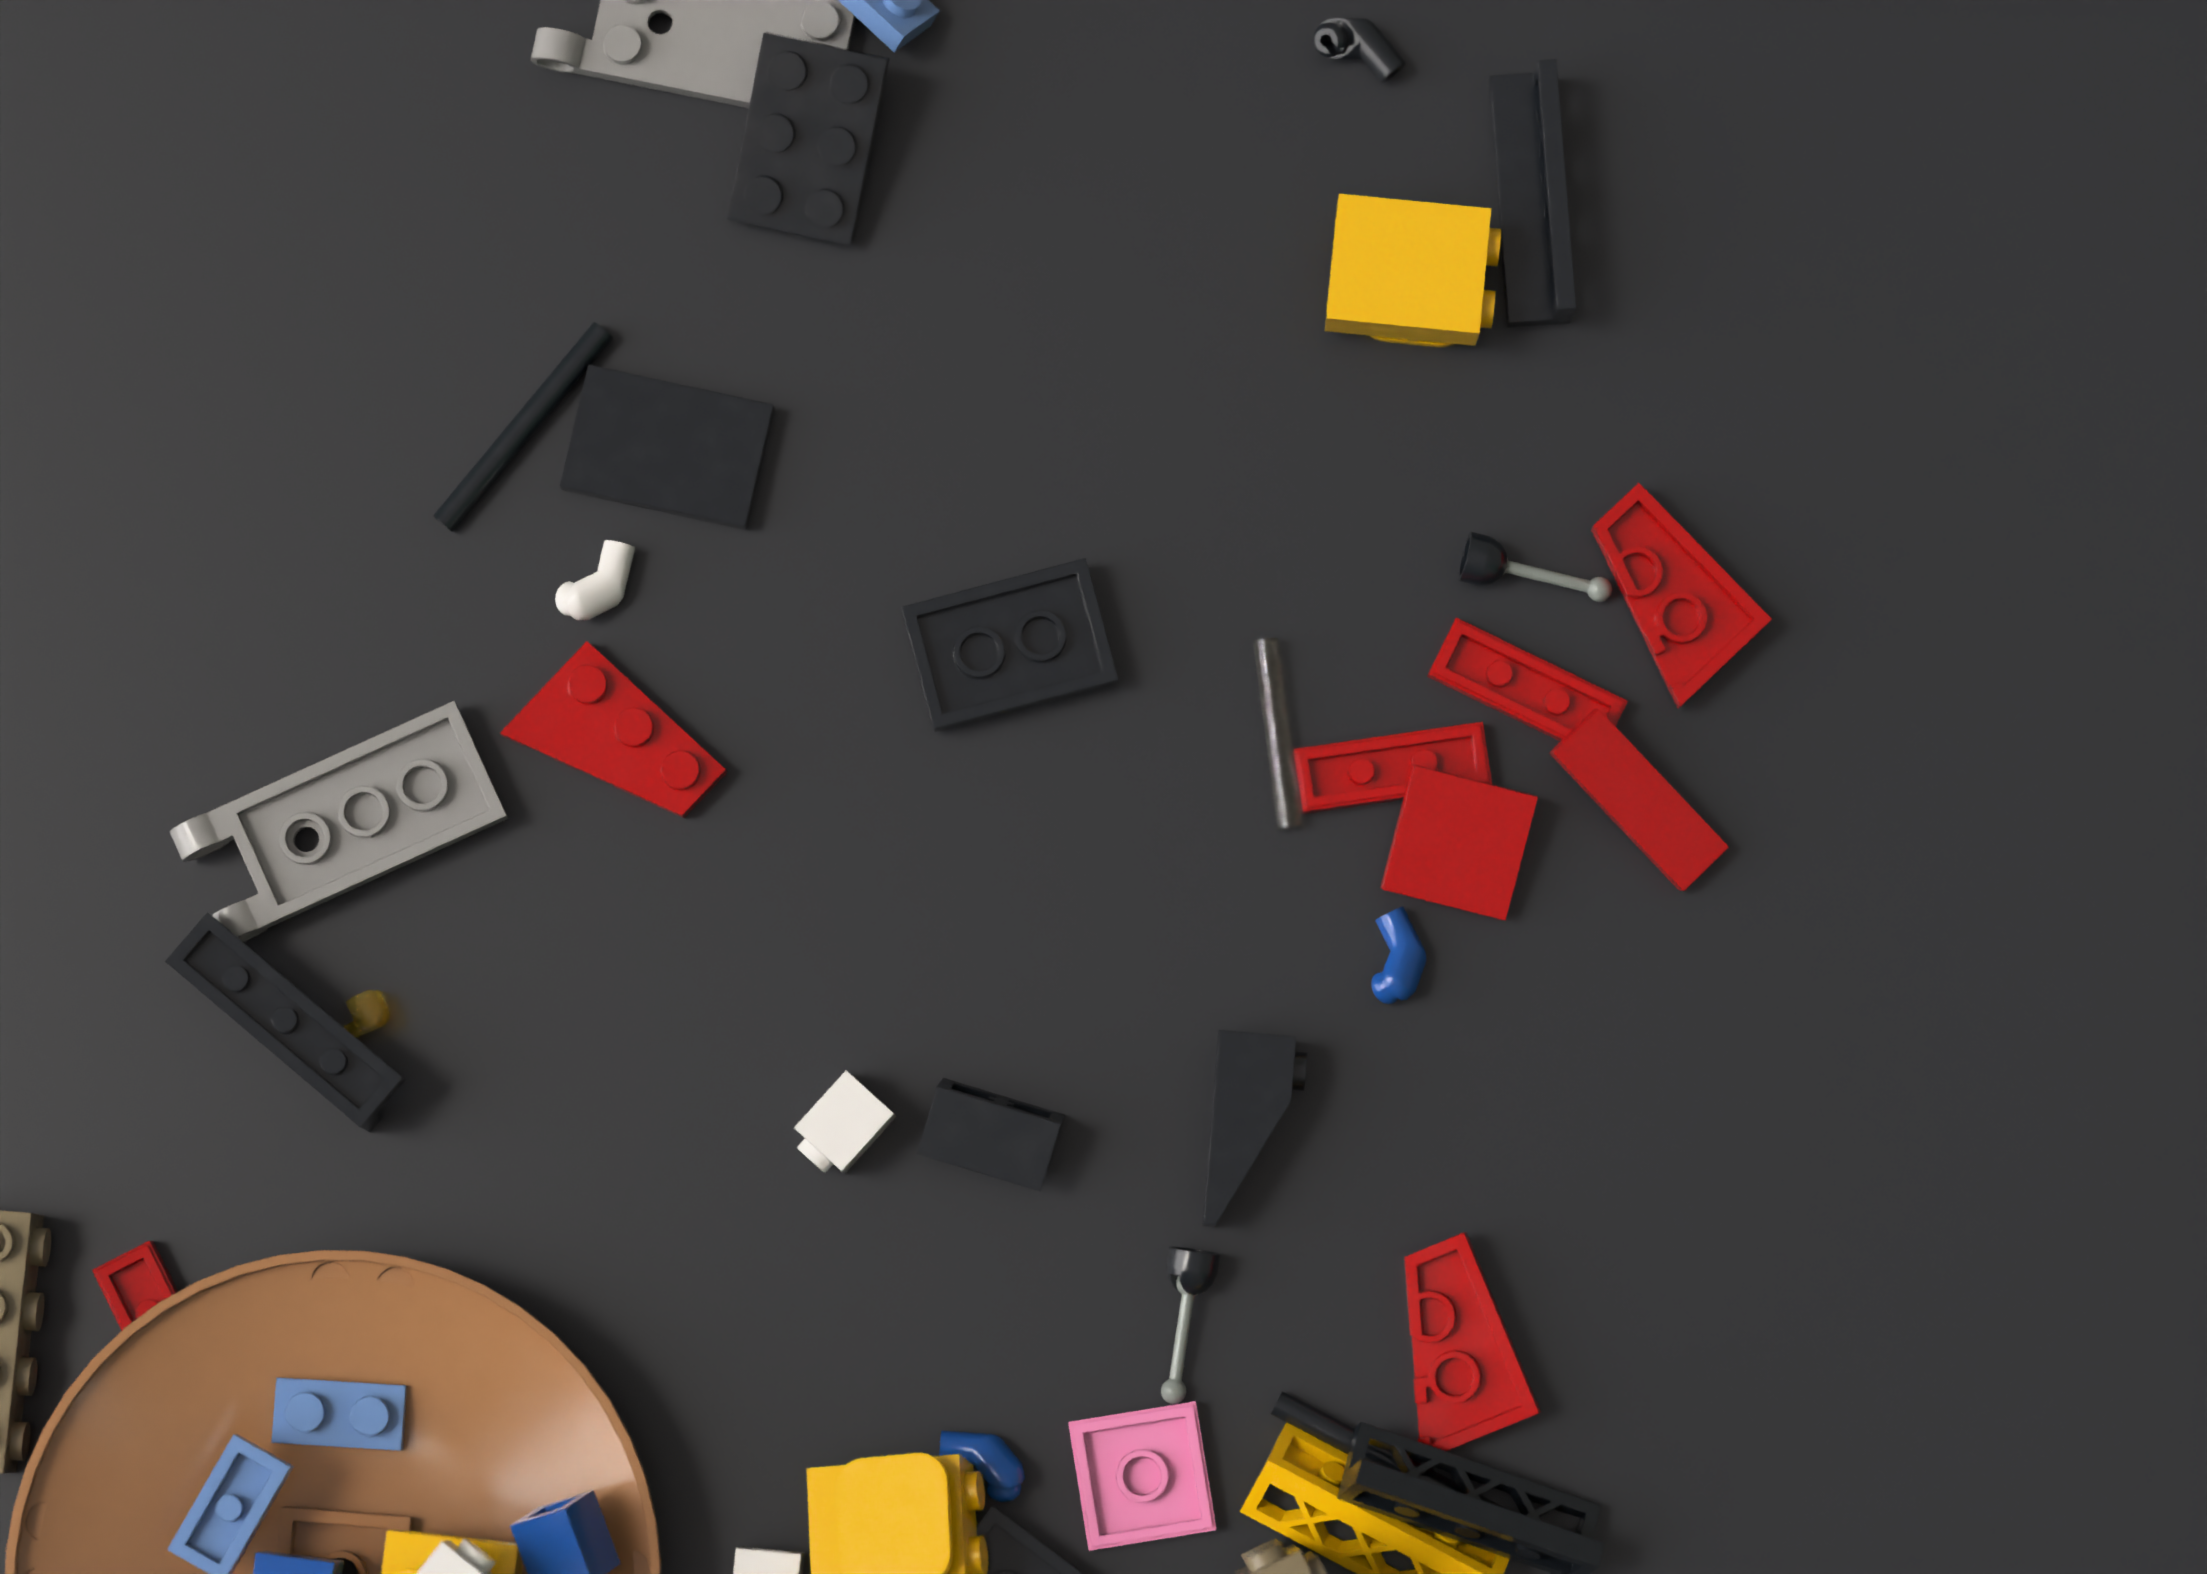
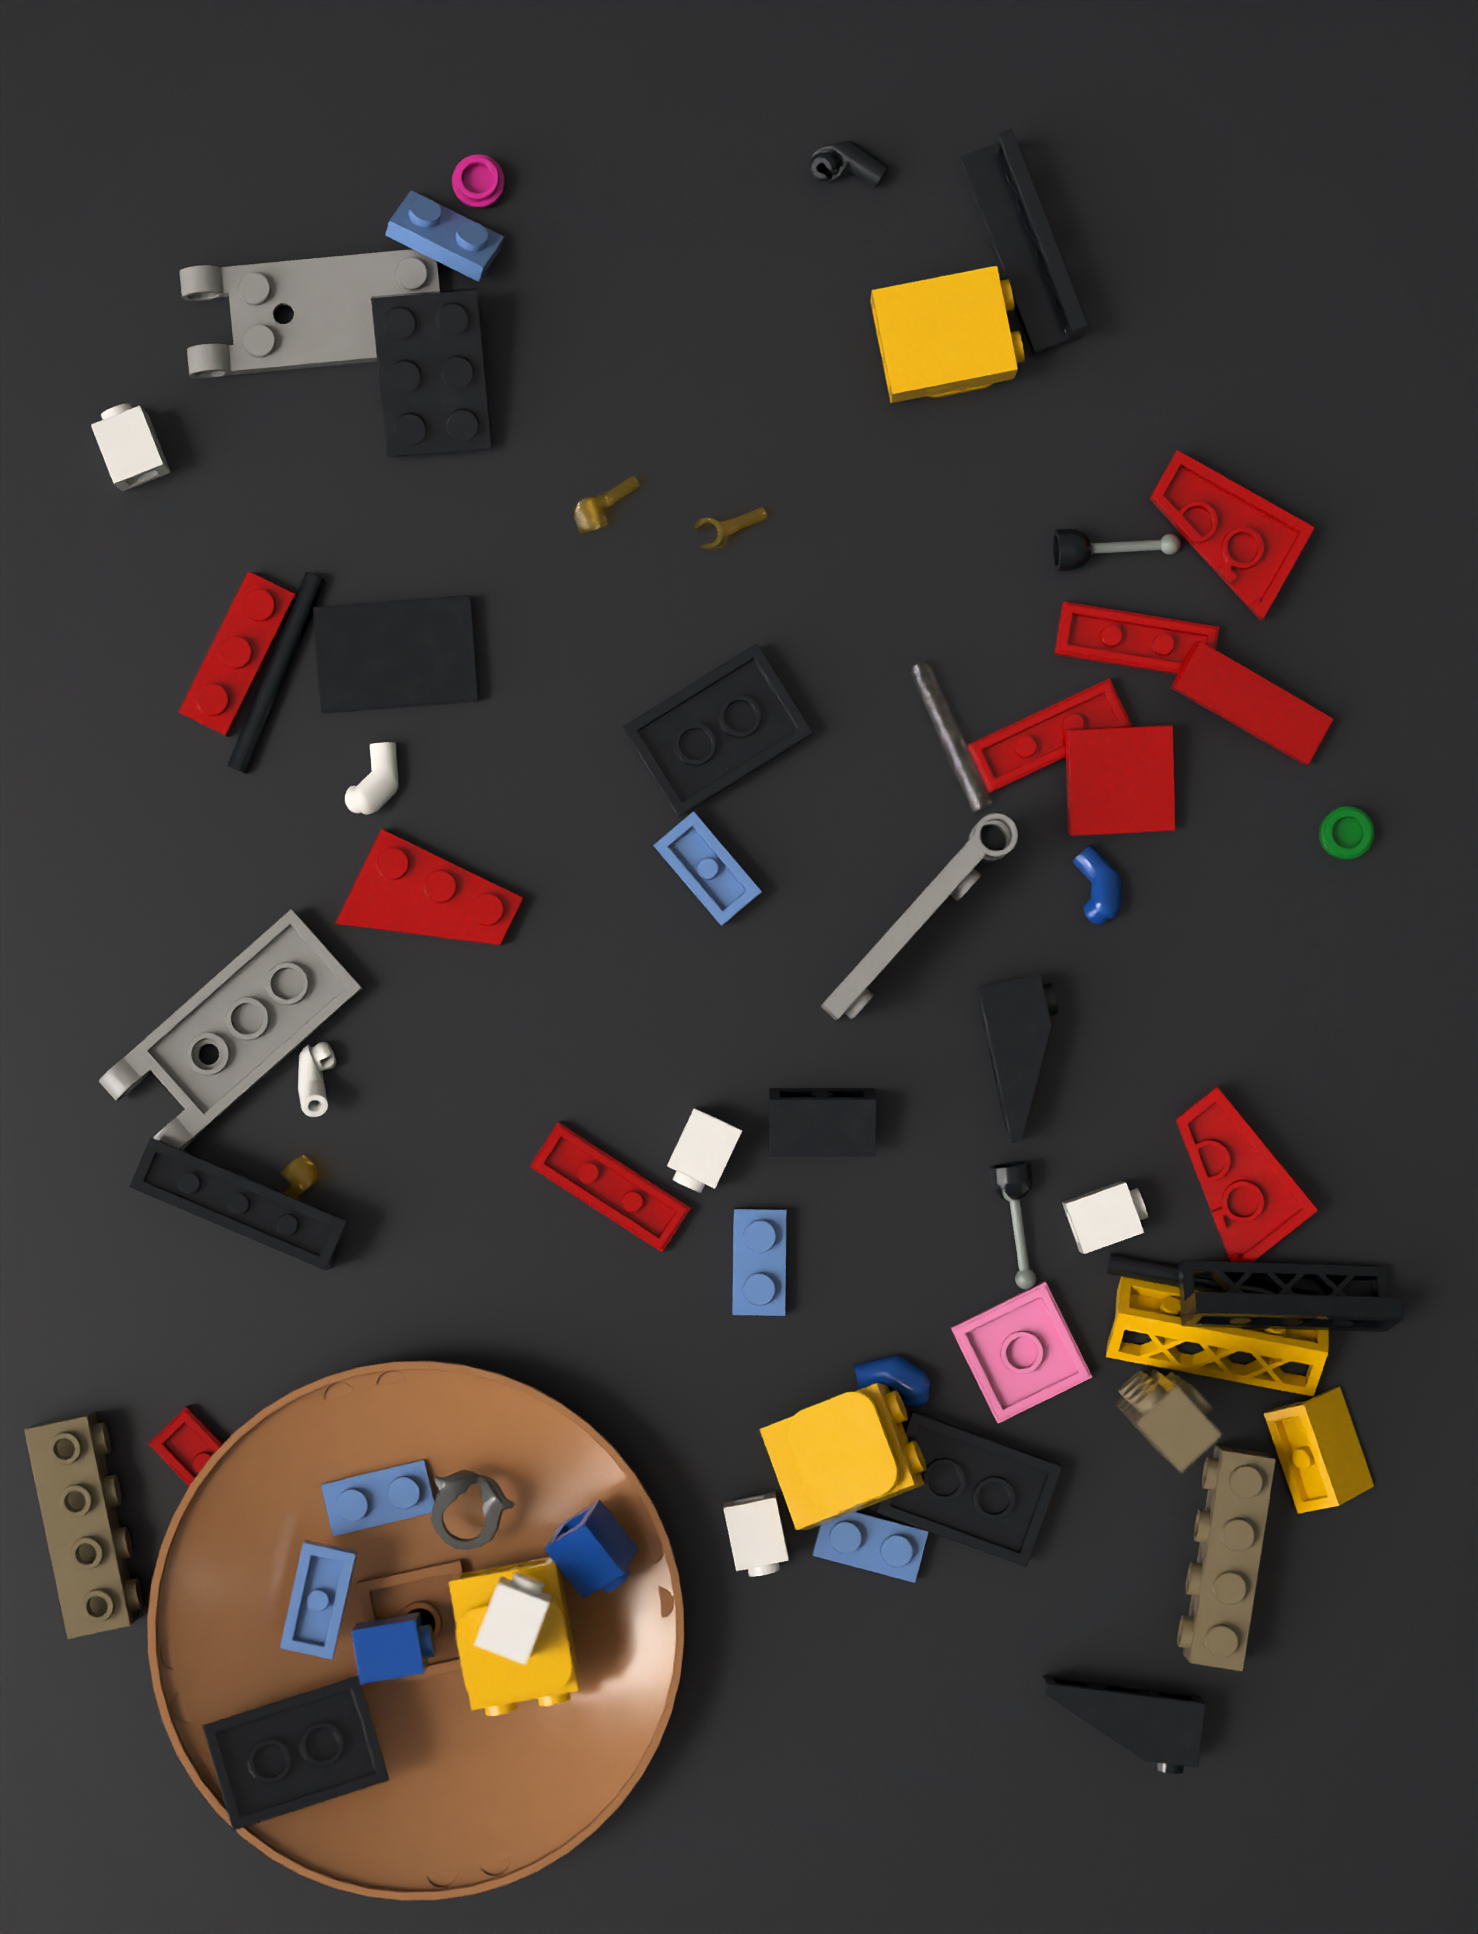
camera: 15 degrees left, 5 degrees up
(415, 903) = (310, 1077): none -> white arm
(437, 119) = (130, 446): none -> white brick
(468, 1460) = (493, 1506): none -> dark grey piece
(485, 392) = (237, 654): none -> red plate
(722, 1135) = (610, 1187): none -> red tile
(868, 1276) = (759, 1262): none -> medium blue plate
(940, 350) = (589, 511): none -> clear yellow hand
(949, 800) = (707, 868): none -> medium blue plate
(1094, 416) = (729, 526): none -> clear yellow hand
(1227, 897) = (953, 881): none -> light grey hinge
(1288, 1344) = (1105, 1216): none -> white brick
(1705, 984) = (1346, 833): none -> green tile

